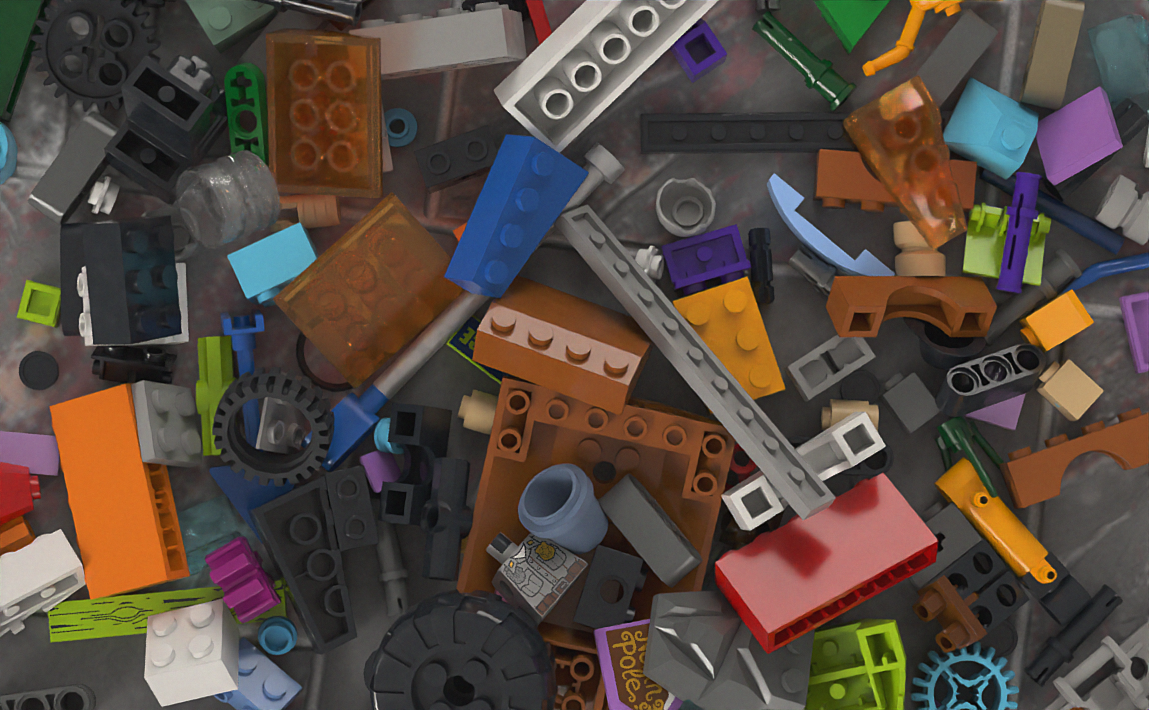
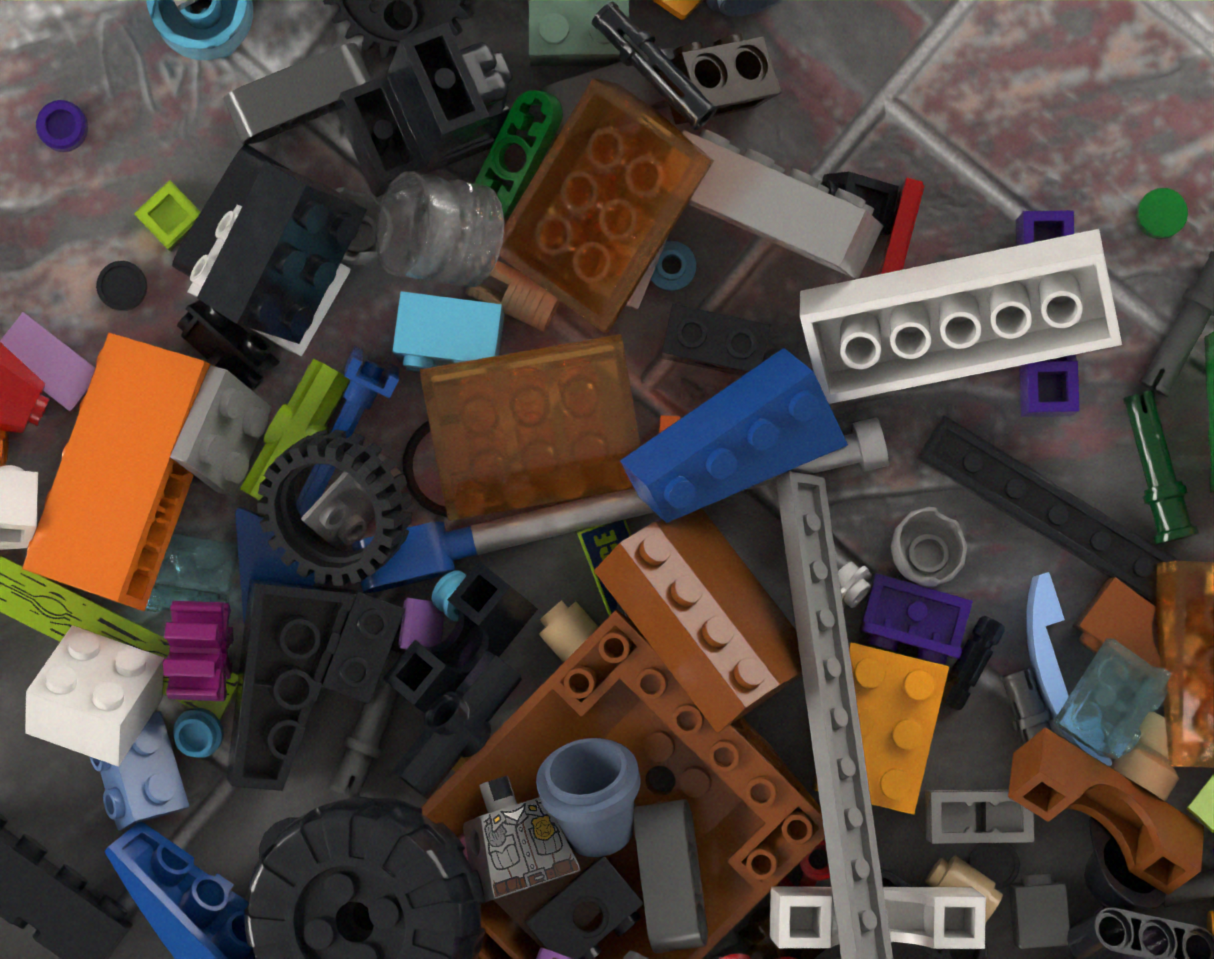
camera: 30 degrees right, 0 degrees up
(103, 195) = (308, 141): white plate -> none
(869, 230) = (1113, 700): none -> clear light blue bracket

